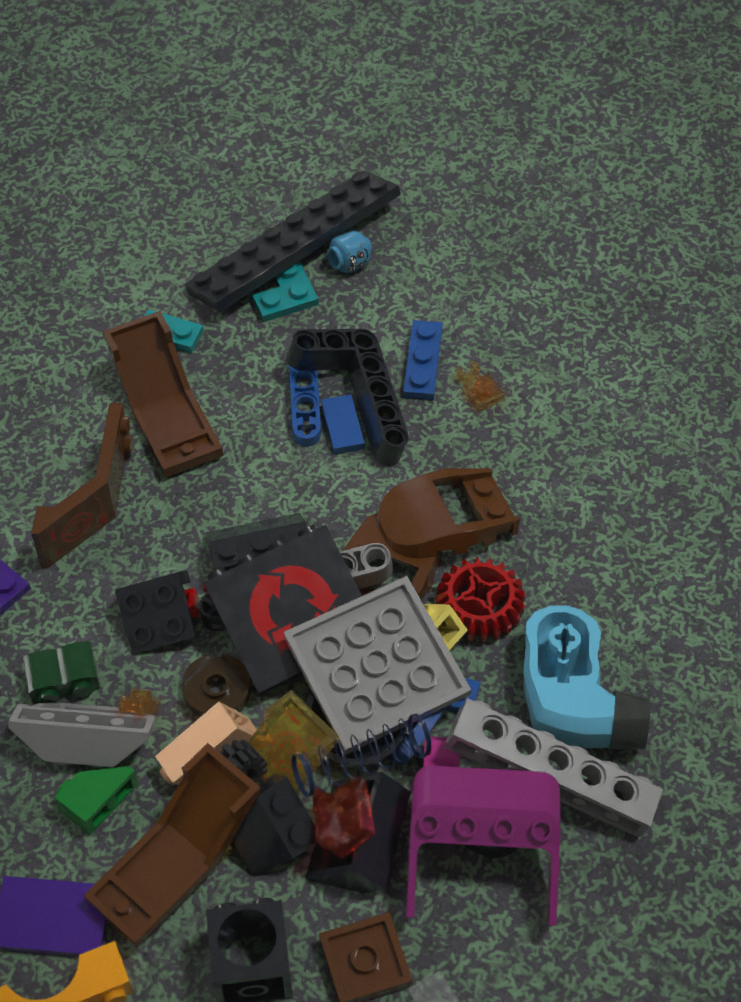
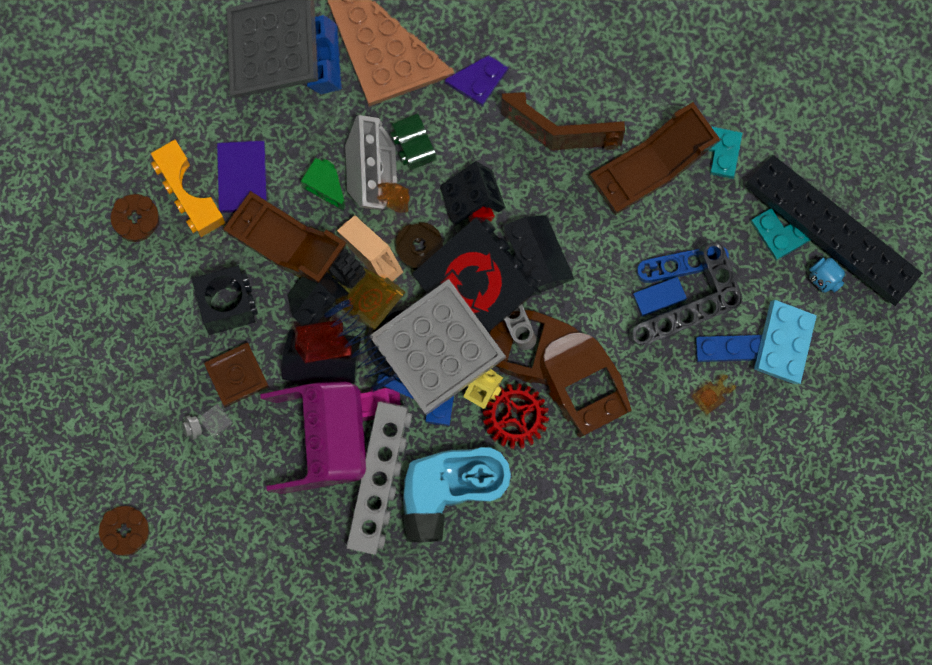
camera: 80 degrees right, 20 degrees up
(426, 303) = (785, 342): none -> medium azure plate

